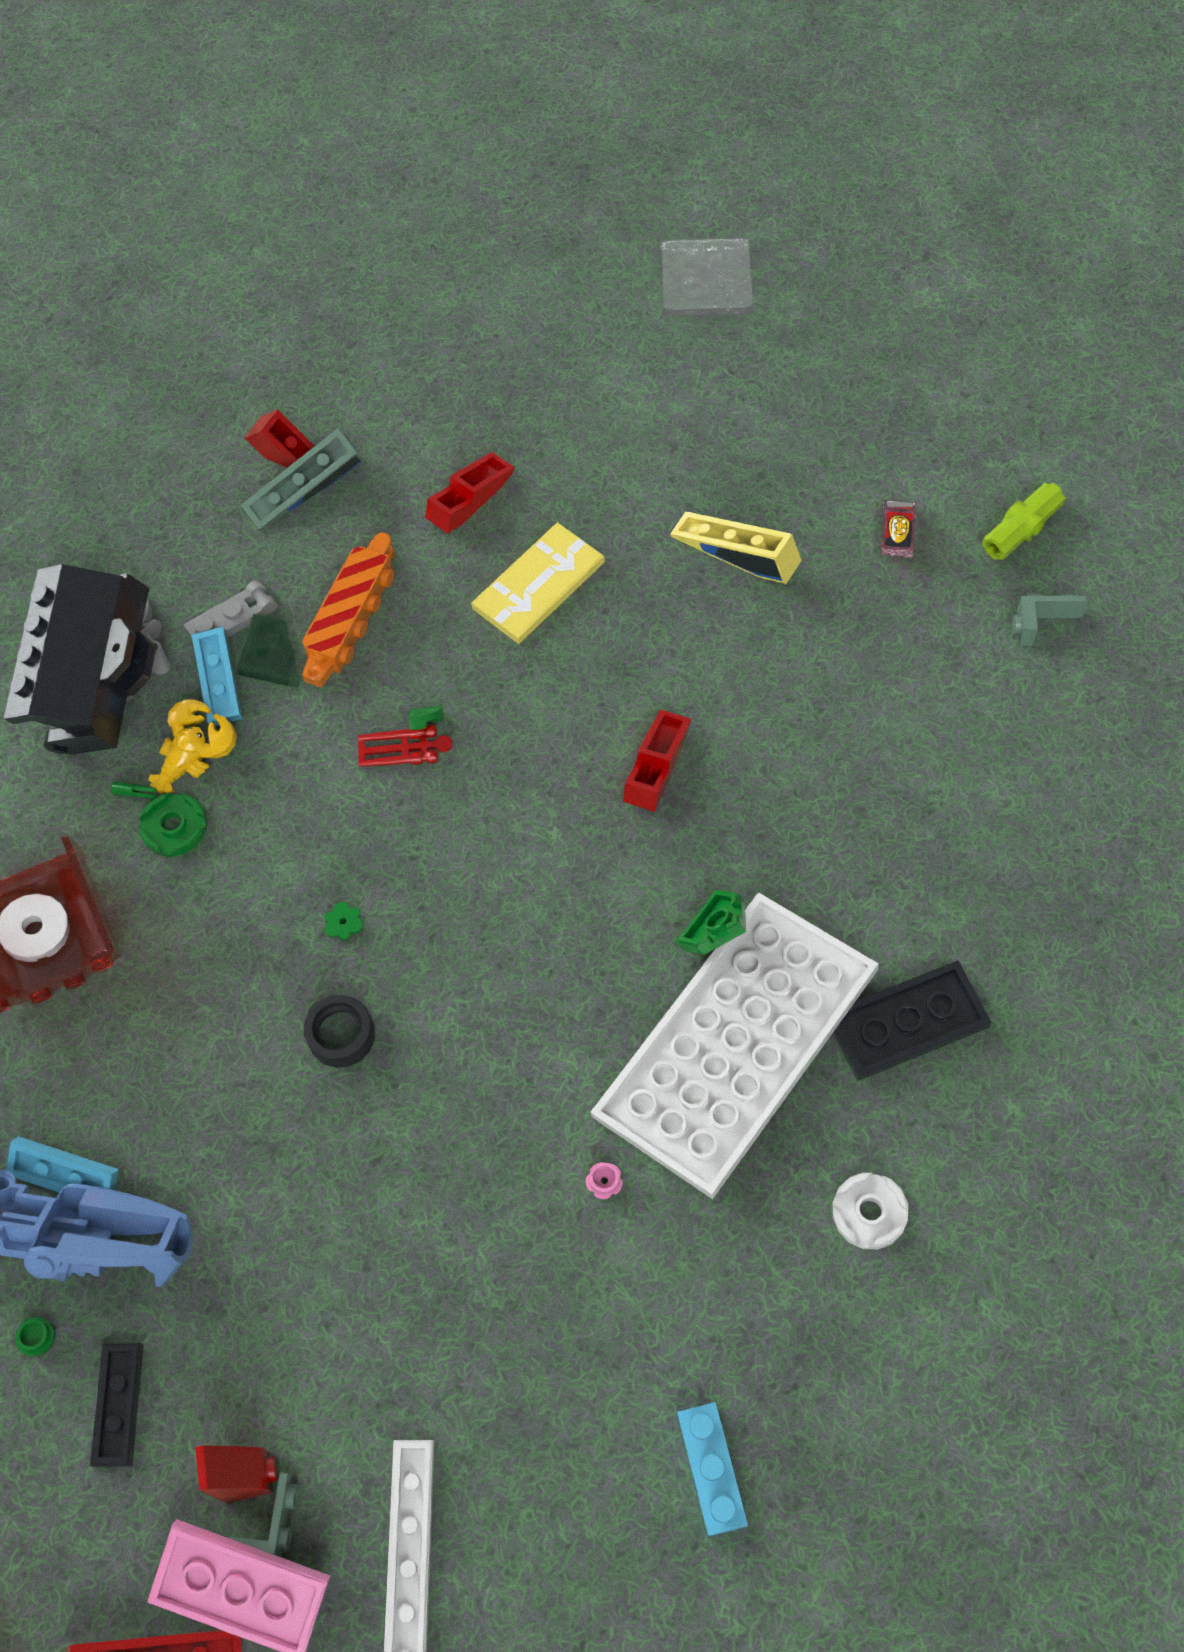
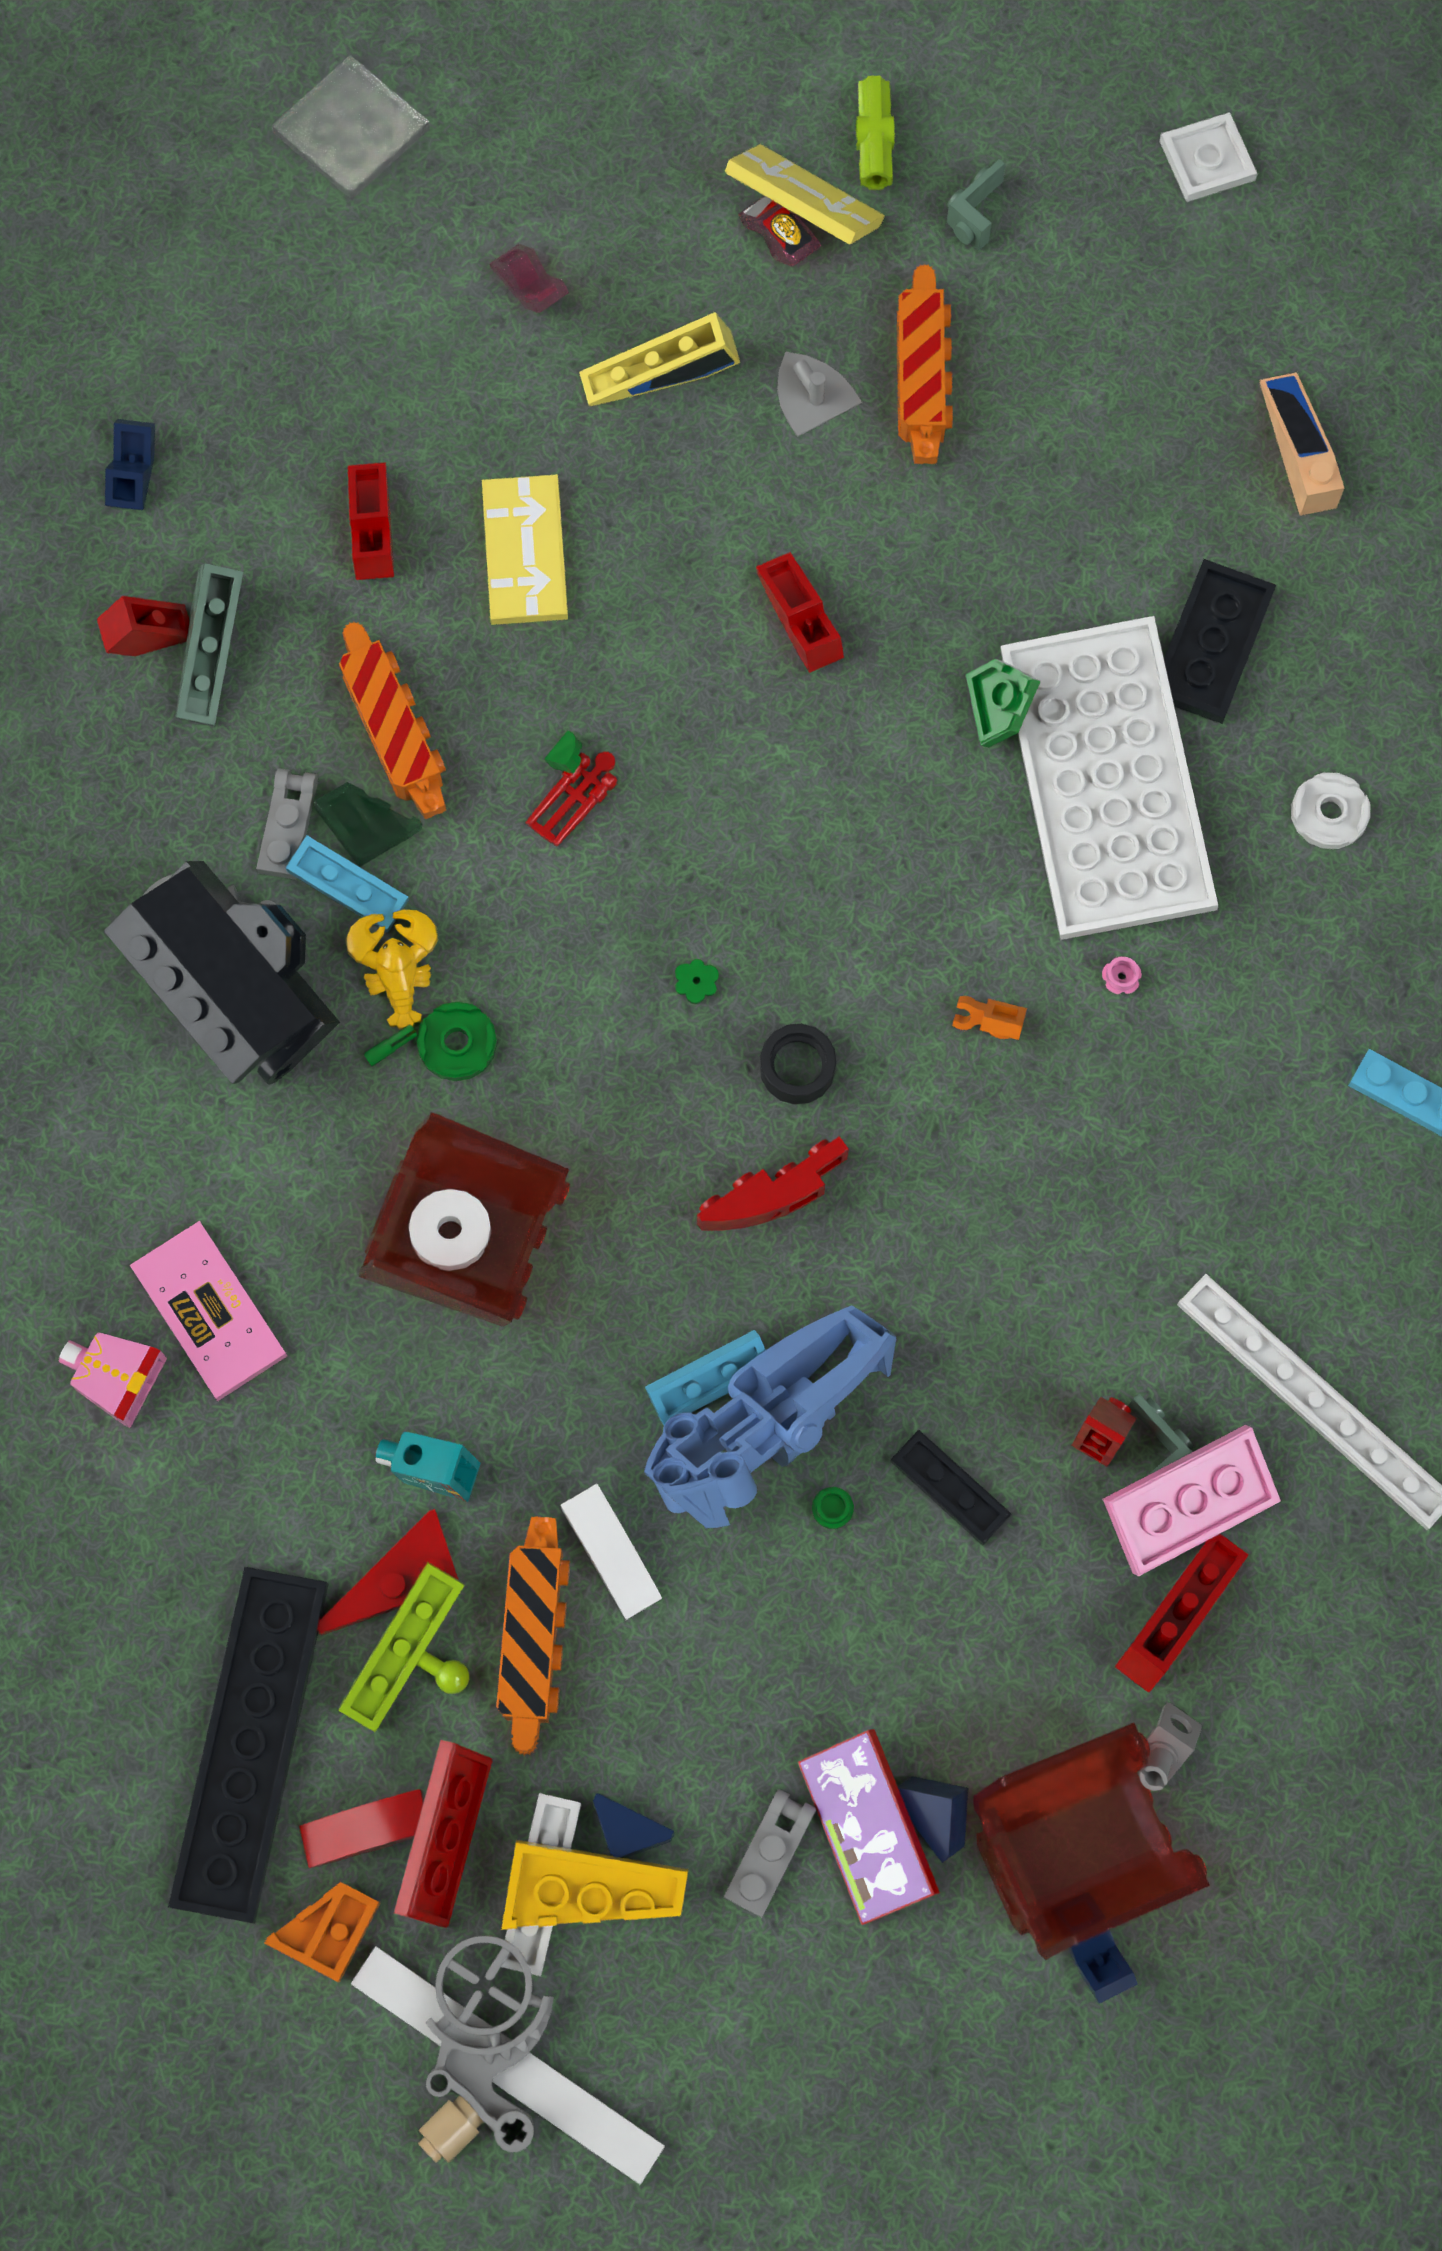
camera: 50 degrees left, 10 degrees up
(223, 1094) = (761, 1200): none -> red slope
(372, 361) = (132, 464): none -> dark blue slope
(488, 1124) = (995, 1017): none -> orange plate
(713, 435) = (527, 278): none -> clear pink slope
(815, 640) = (812, 392): none -> light grey shield
(899, 679) = (921, 366): none -> orange hinge
(935, 518) = (804, 194): none -> light yellow tile
(1112, 948) = (1303, 445): none -> light nougat slope

